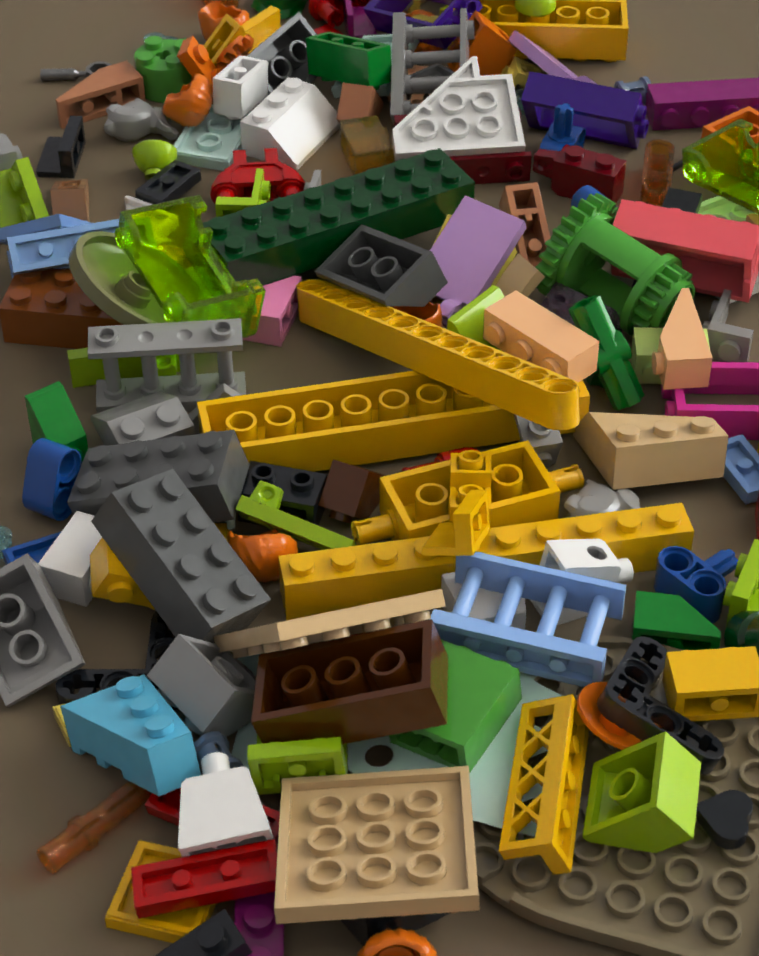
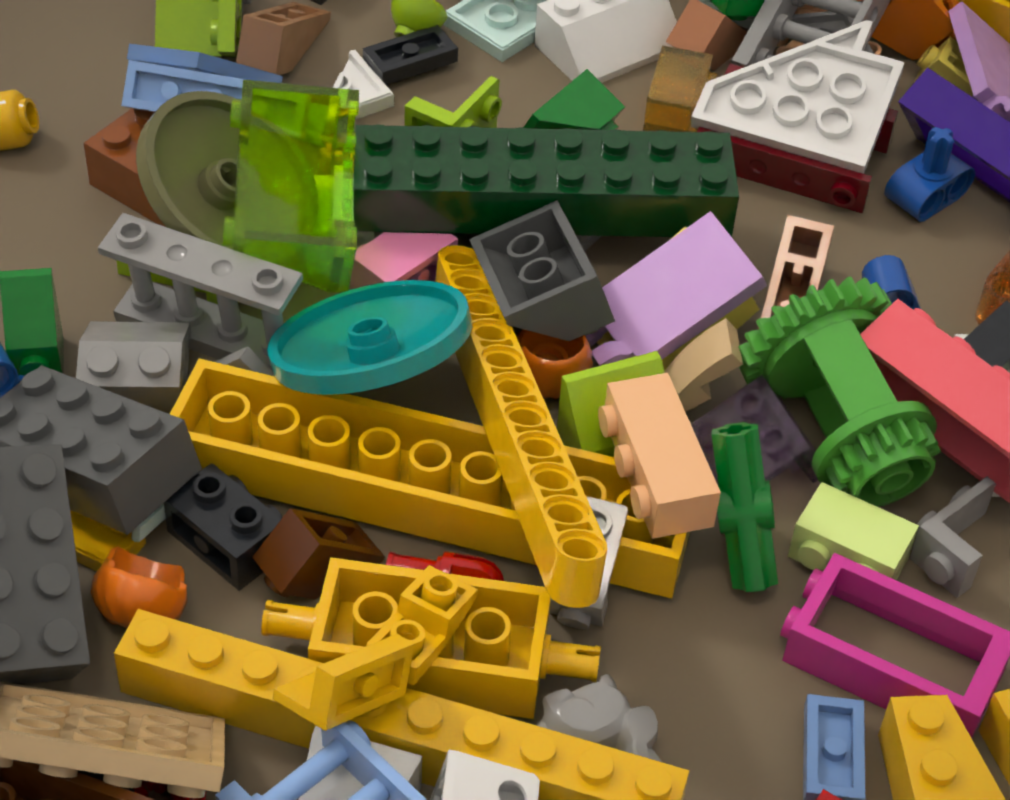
camera: 25 degrees right, 5 degrees up
(239, 177) = (520, 86): red connector -> none
(263, 509) = (176, 540): lime hinge -> none
(305, 344) = (370, 337): none -> teal dish
(325, 167) = (579, 106): none -> green slope
(579, 167) = (926, 234): dark red hinge -> none
(652, 448) = (721, 673): tan wedge -> none
(683, 349) = (848, 540): light nougat slope -> none

